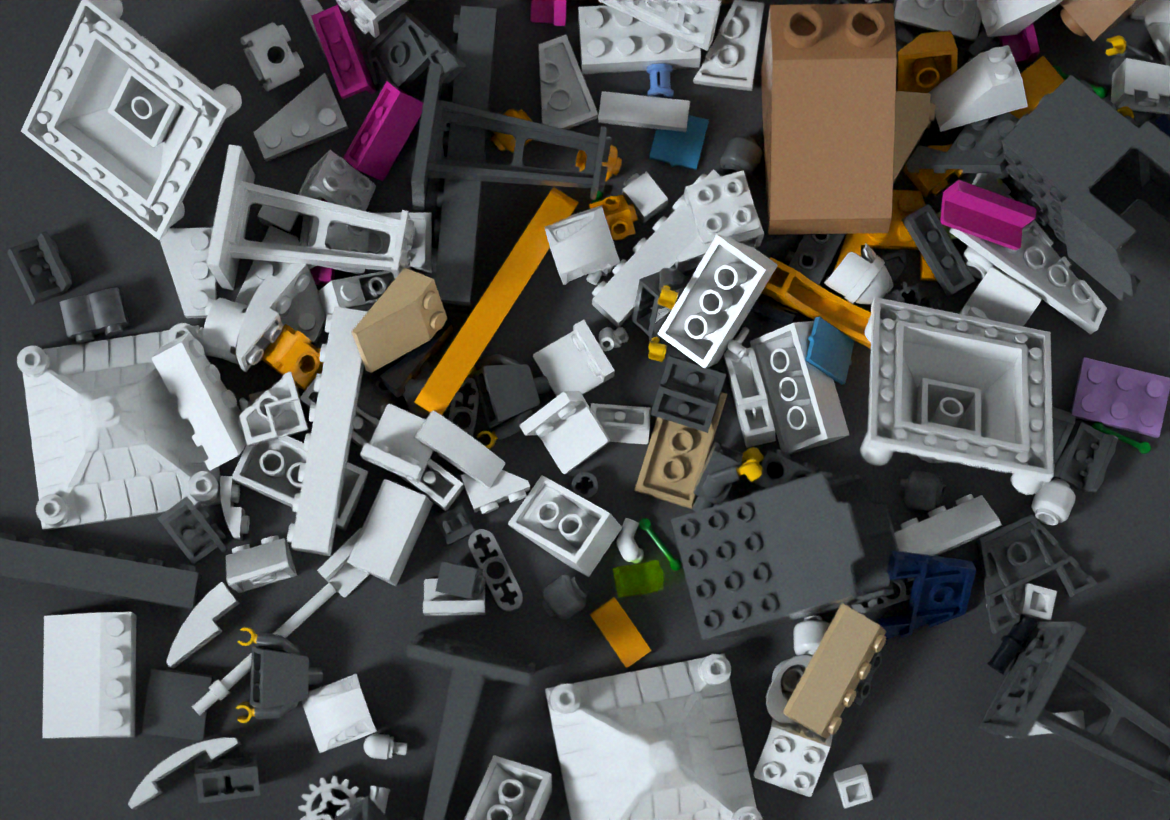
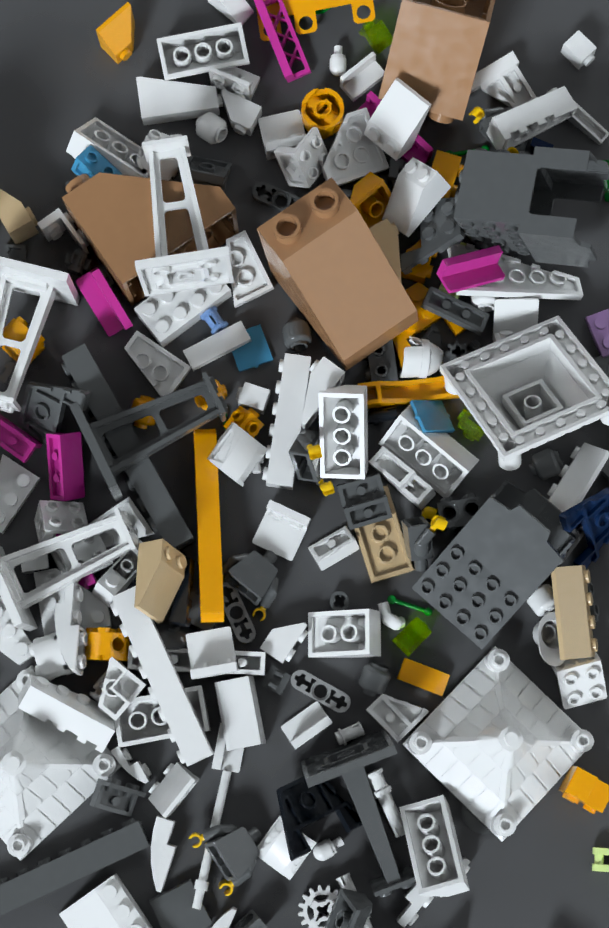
camera: 30 degrees left, 0 degrees up
(393, 682) = (306, 805): none -> black wing
(460, 449) = (249, 632): white slope -> none
(460, 580) = (304, 712): dark grey brick -> none
(486, 727) = (382, 791): none -> white pin
(495, 638) = (349, 733): none -> white pin
(560, 654) = (396, 715): none -> white wing
(567, 430) = (306, 574): white bracket -> none
(612, 338) = (294, 499): white arm -> none
(722, 207) = (308, 372): white bracket -> none
(735, 349) = (374, 454): white hand -> none
(861, 385) = (471, 430): none -> clear neon green bracket

